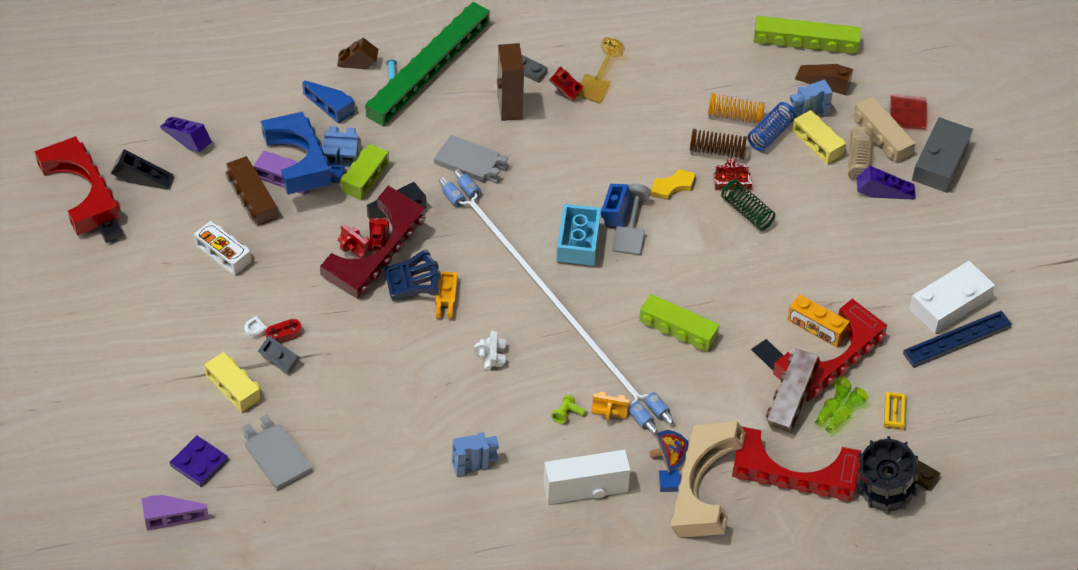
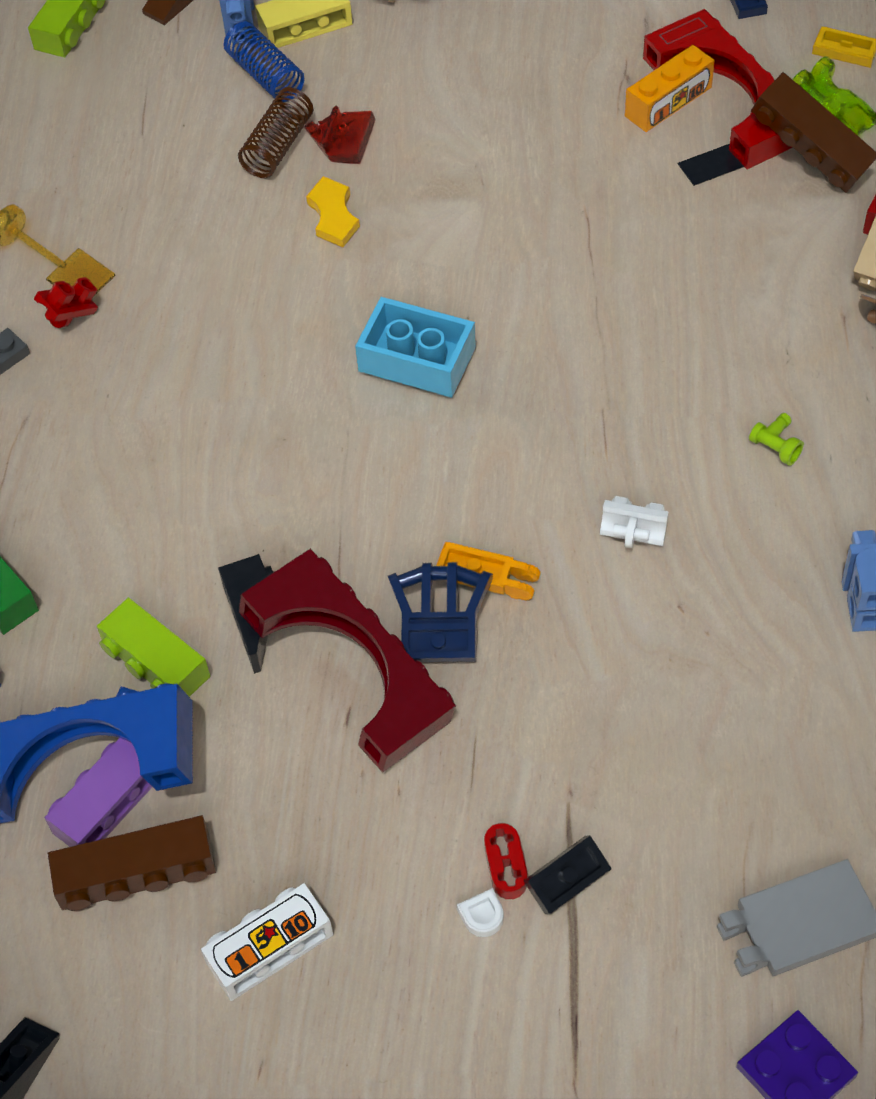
camera: 70 degrees left, 5 degrees up
(233, 381) = (618, 971): light yellow brick -> none
(341, 144) = (73, 677): medium blue hips -> none
(351, 240) = (321, 699): red hips -> none
(379, 233) = (323, 646): red hips -> none
(471, 159) = (178, 480): light grey tile -> none
(510, 81) = (55, 360): reddish brown brick -> none
(609, 405) = (788, 377): light orange hips -> none
(616, 205) = (366, 280): blue brick -> none
(629, 238) = (429, 289): light grey piece -> none
(637, 410) = (266, 516): piece -> none
(679, 322) = (631, 255): lime brick -> none
(759, 114) = (185, 109): light orange piece -> none
(760, 217) = (380, 127): dark green piece -> none

